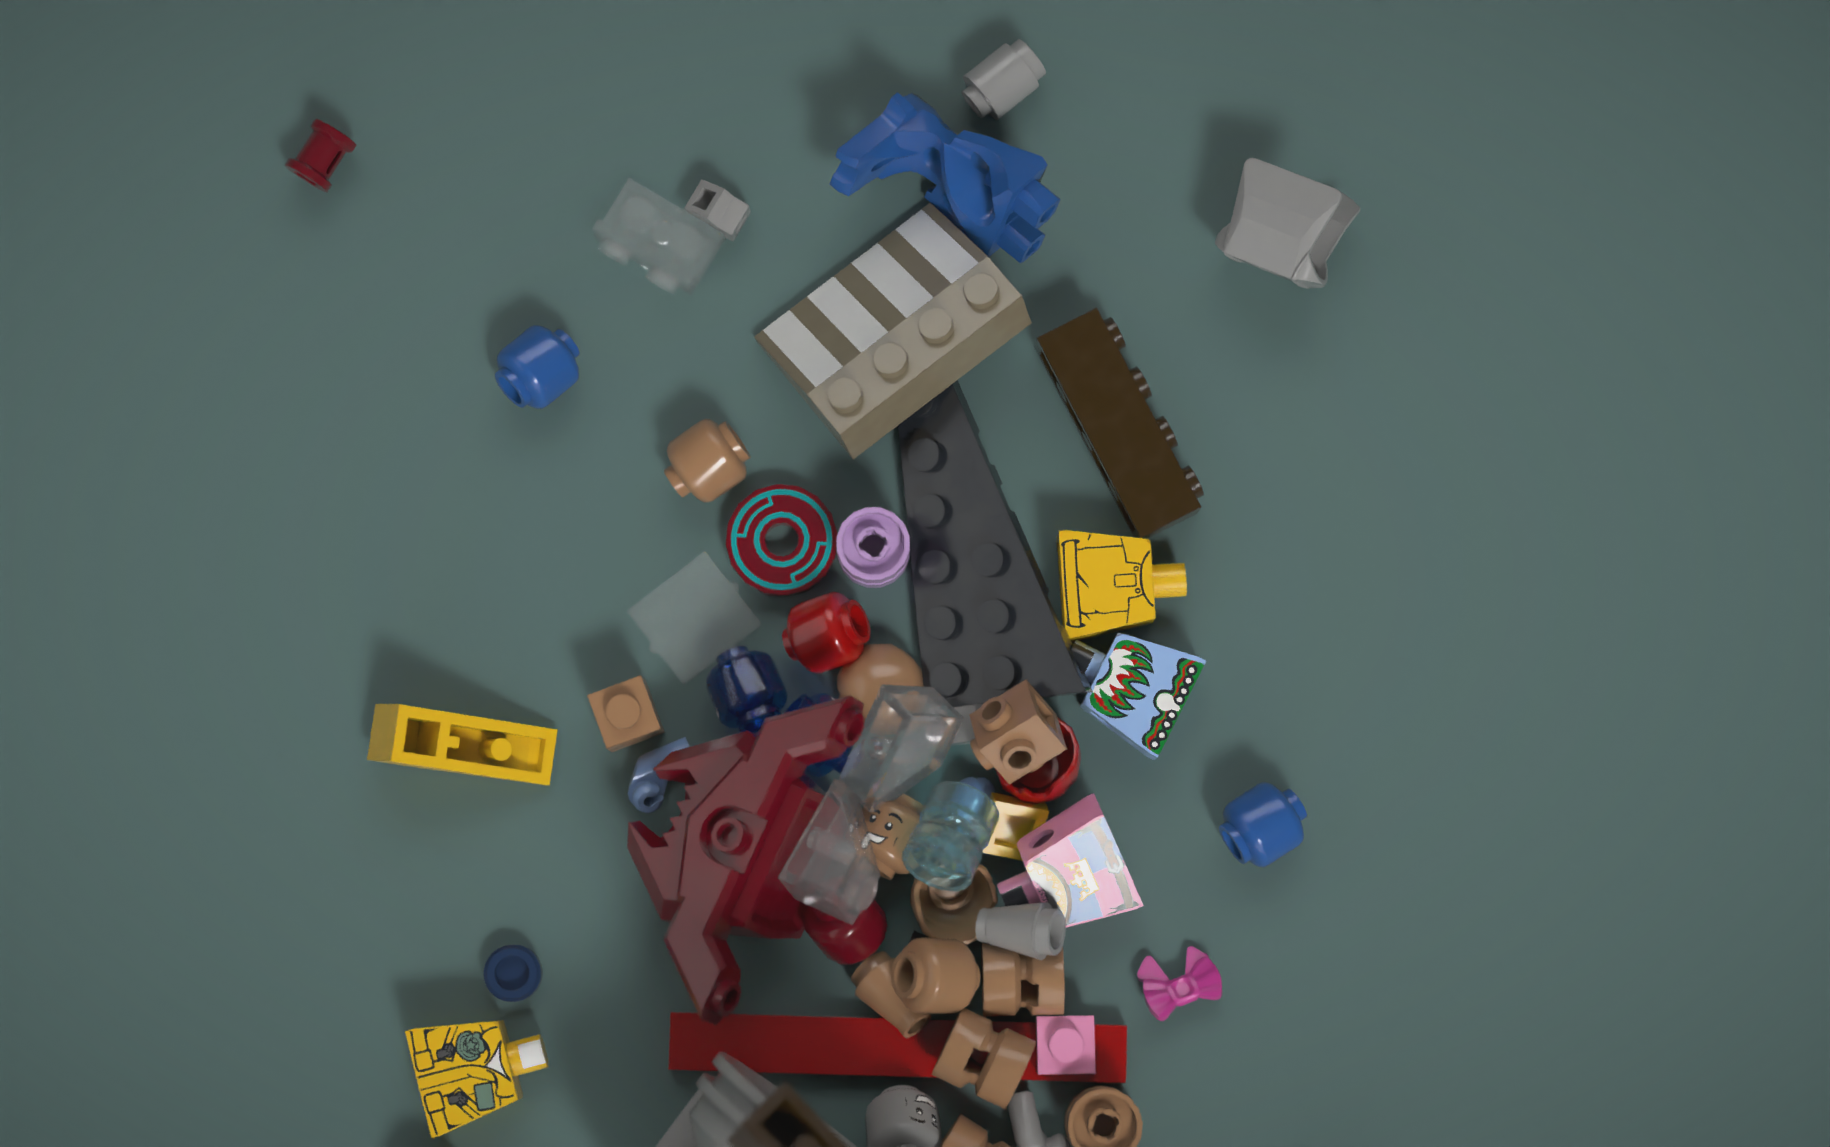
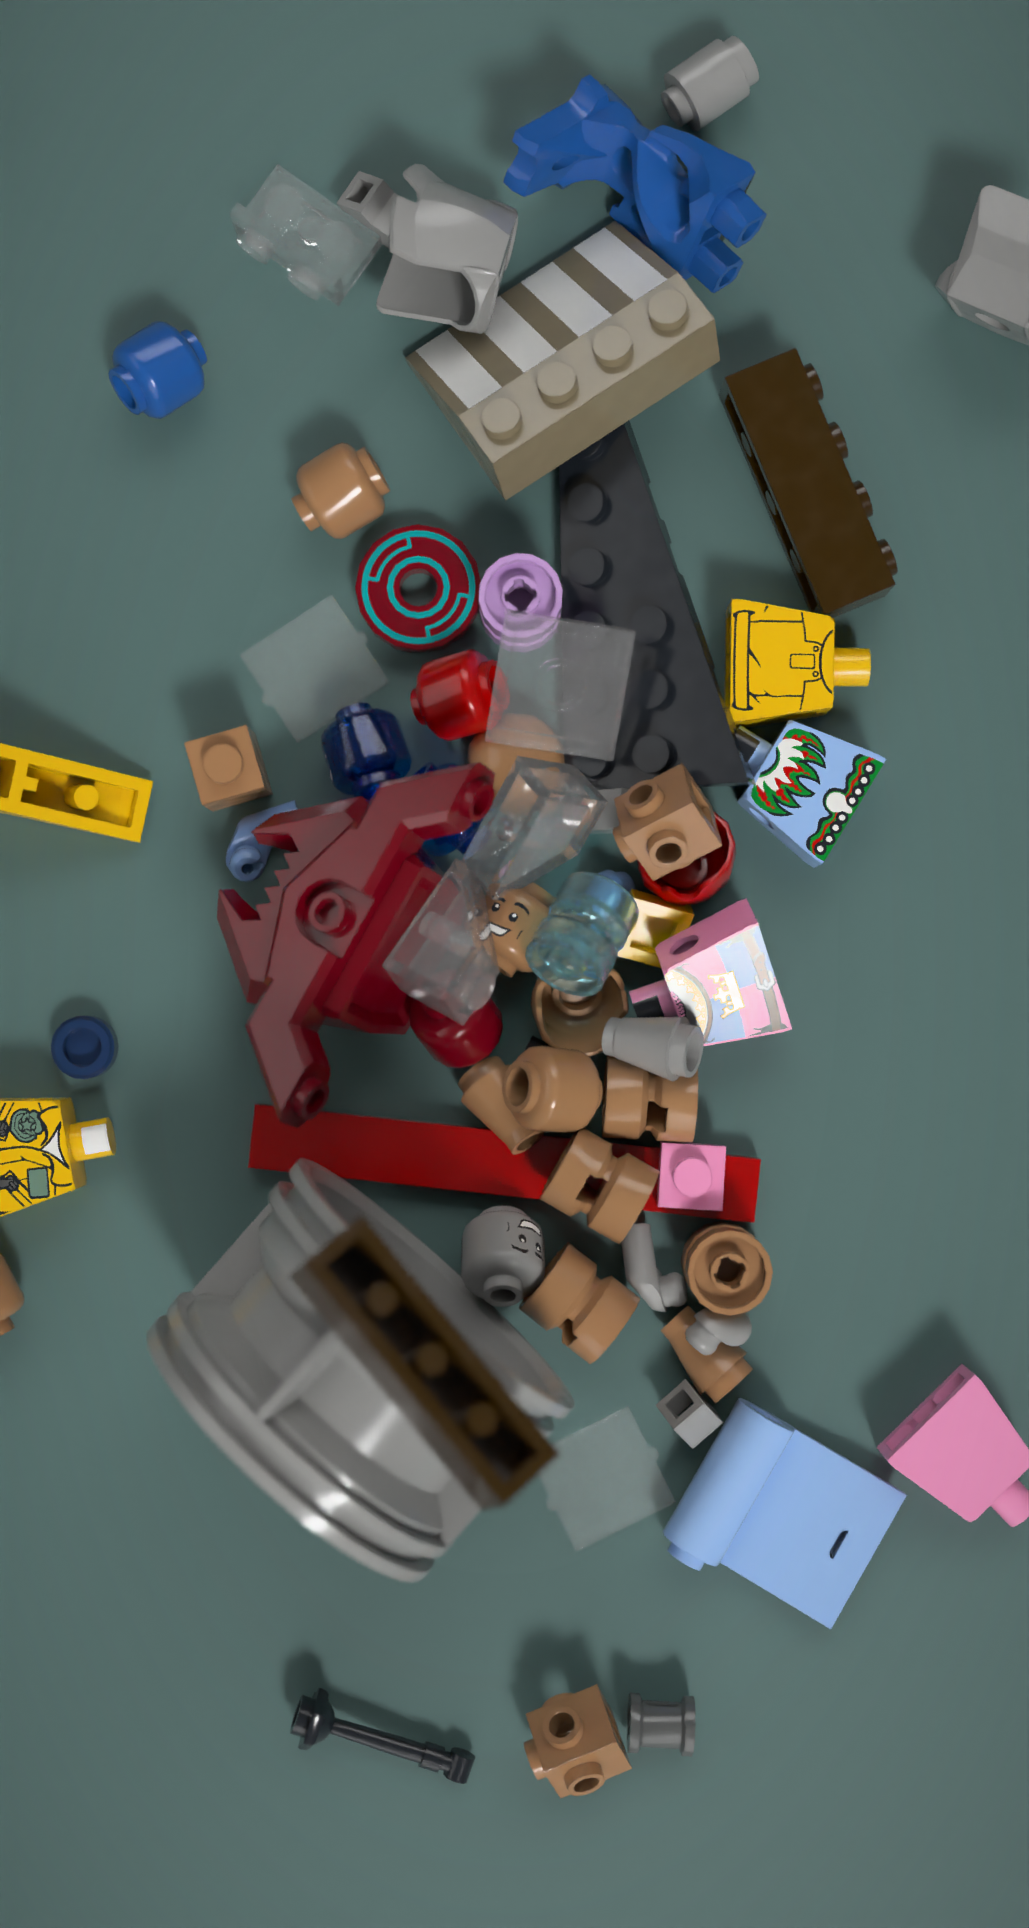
camera: 10 degrees right, 5 degrees up
(785, 250) = (446, 254): none -> light grey piece
(913, 619) = (559, 685): none -> clear tile
(1164, 995) = (803, 1129): dark pink piece -> none
(1263, 824) = (932, 948): blue head -> none

